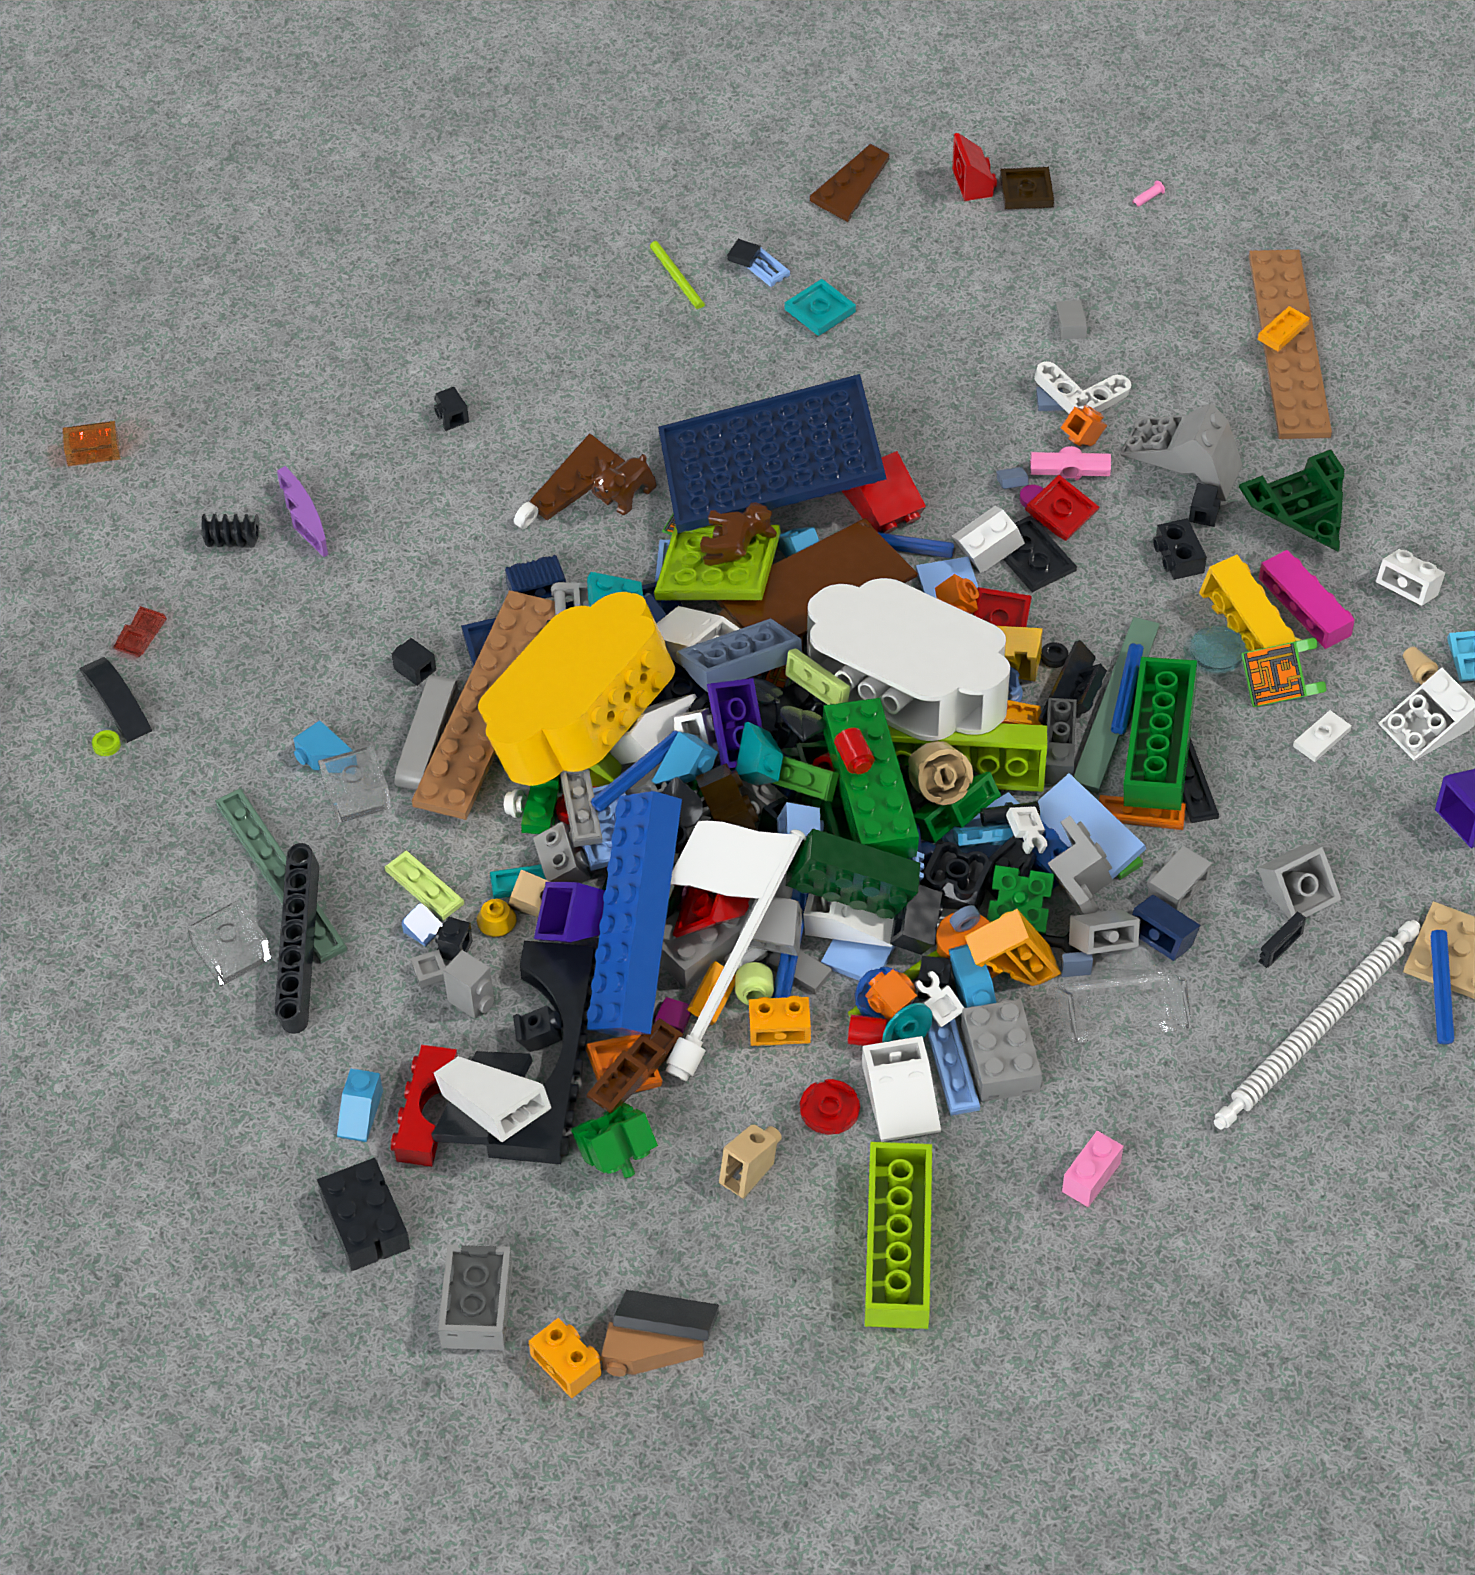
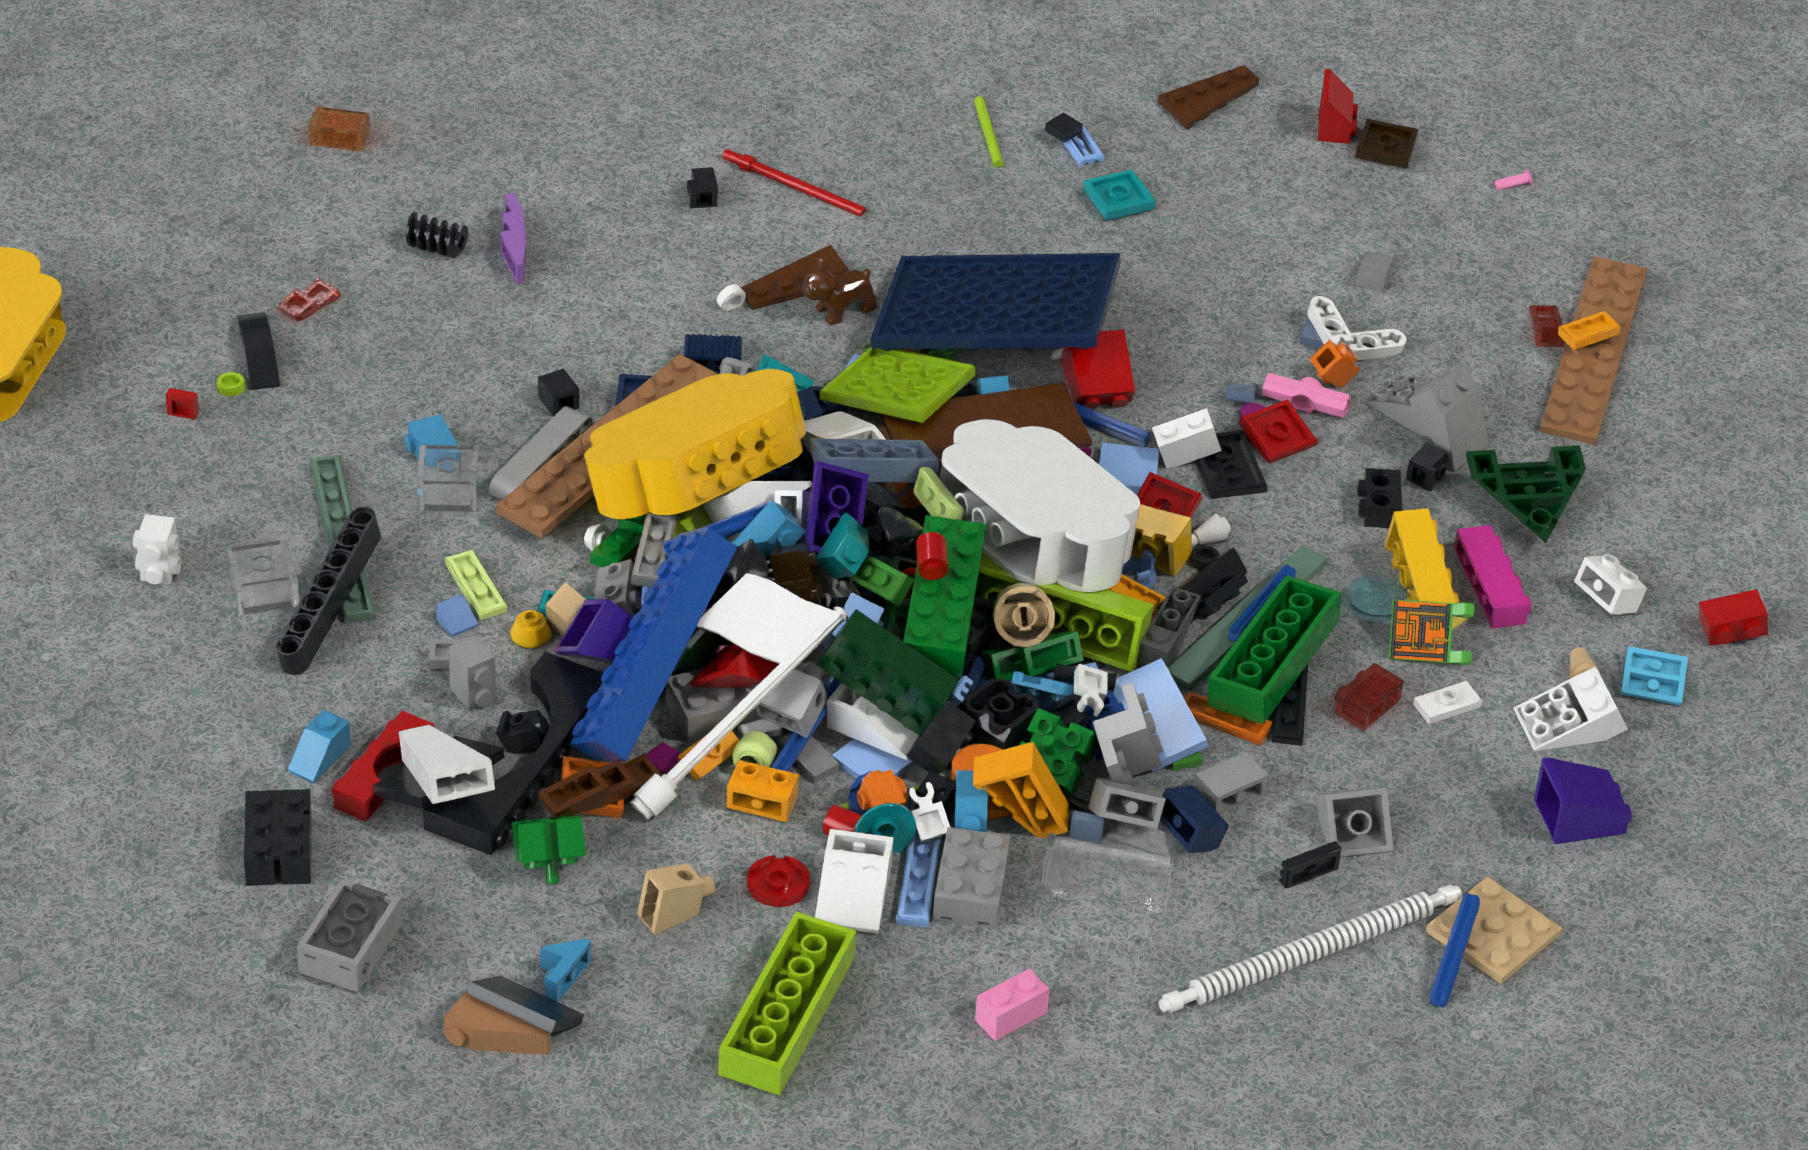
camera: 15 degrees right, 10 degrees down
(71, 779) = (182, 403): none -> red plate
(120, 946) = (157, 549): none -> white brick
(453, 937) = (484, 627): black brick -> none
(479, 370) = (749, 163): none -> red bar
(565, 1357) = (411, 1010): light orange brick -> none
(681, 1258) = (564, 965): none -> dark azure slope
(734, 536) = (924, 357): reddish brown animal -> none
(958, 593) = (1128, 470): orange brick -> none
(965, 918) = (985, 744): sand blue tile -> none
(1052, 624) = (1211, 531): none -> white cone
(1243, 338) = (1546, 328): none -> clear red slope
(1256, 752) = (1368, 696): none -> clear red brick

